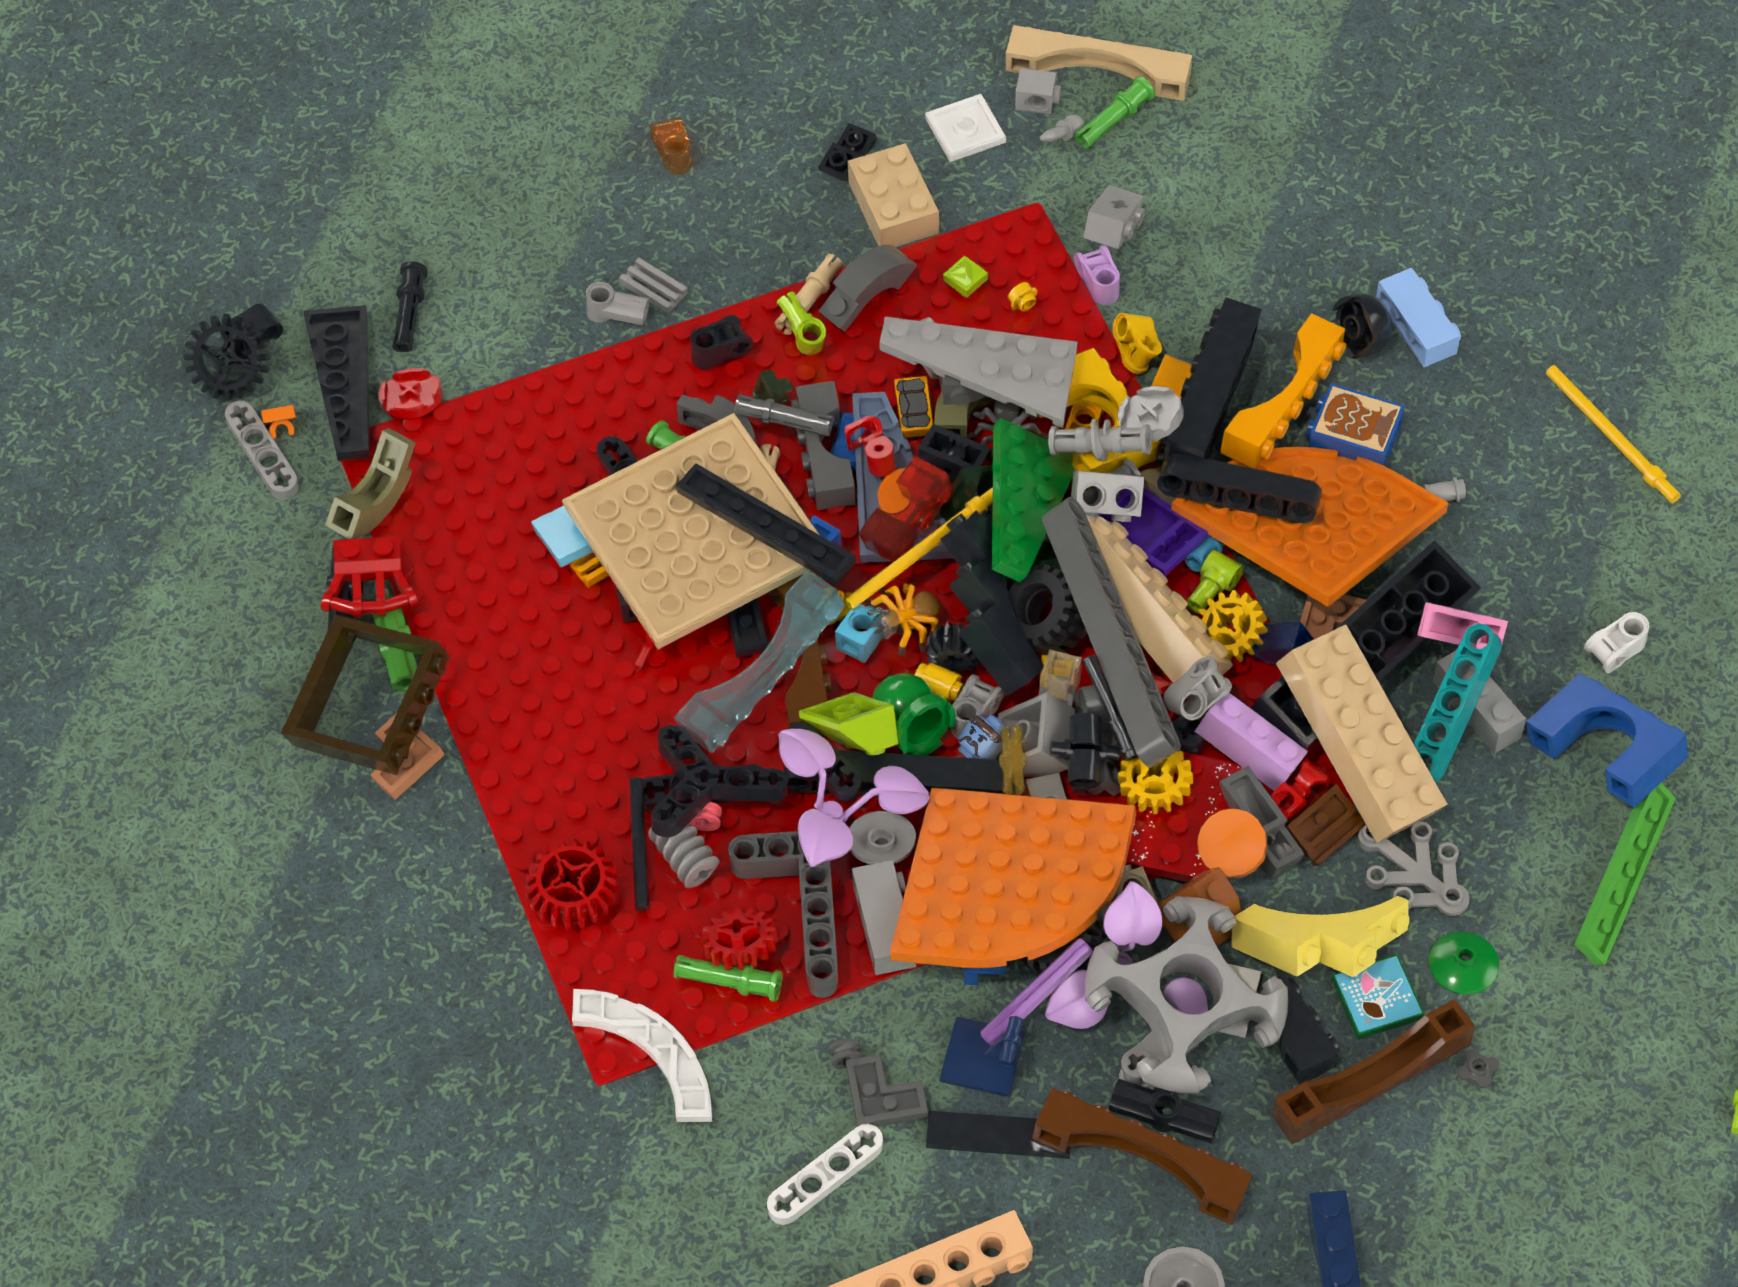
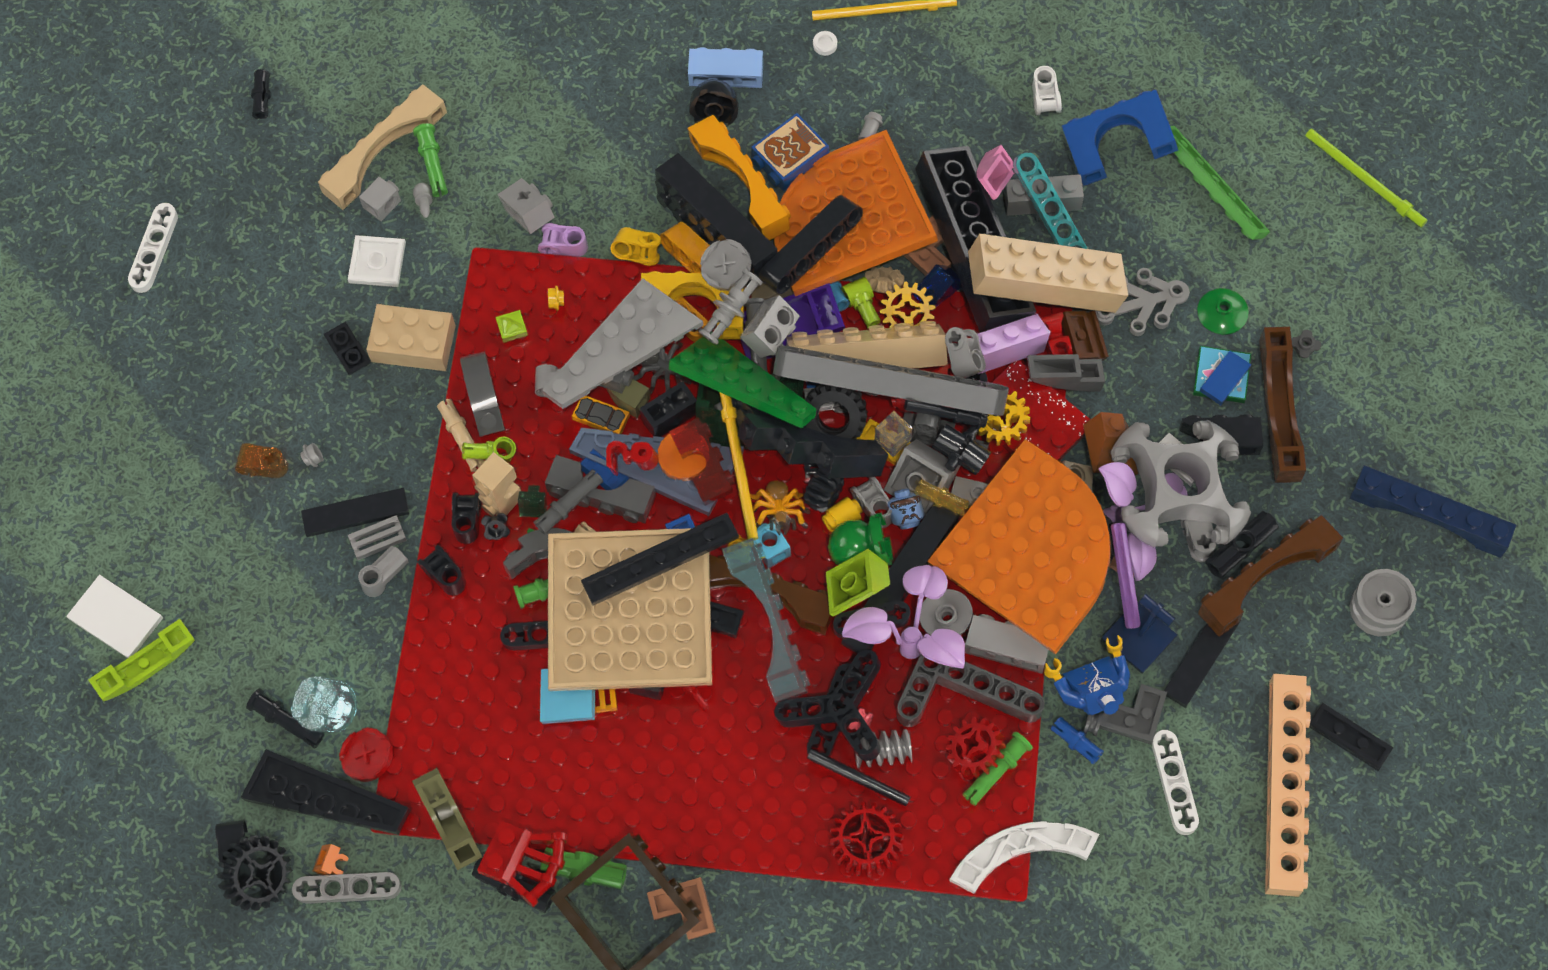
camera: 60 degrees left, 10 degrees up
(396, 163) = (144, 663): none -> lime slope
(434, 115) = (114, 617): none -> white tile
(437, 325) = (324, 704): none -> clear light blue piece
(646, 355) = (439, 568): none -> black piece
(670, 253) = (355, 512): none -> black tile
(708, 183) = (311, 455): none -> light grey plate
(717, 374) = (495, 533): none -> black plate
(756, 338) = (496, 485): none -> tan arch
(815, 1048) = (1077, 740): none -> blue pin
(888, 1029) = (1094, 685): none -> blue torso
(1232, 842) = (1078, 396): orange tile -> none
(1253, 583) = (884, 279): none -> tan gear
(1304, 940) = (1172, 390): light yellow arch -> none
(1369, 996) = (1225, 378): none -> blue tile
(1524, 398) = (825, 43): none -> white tile

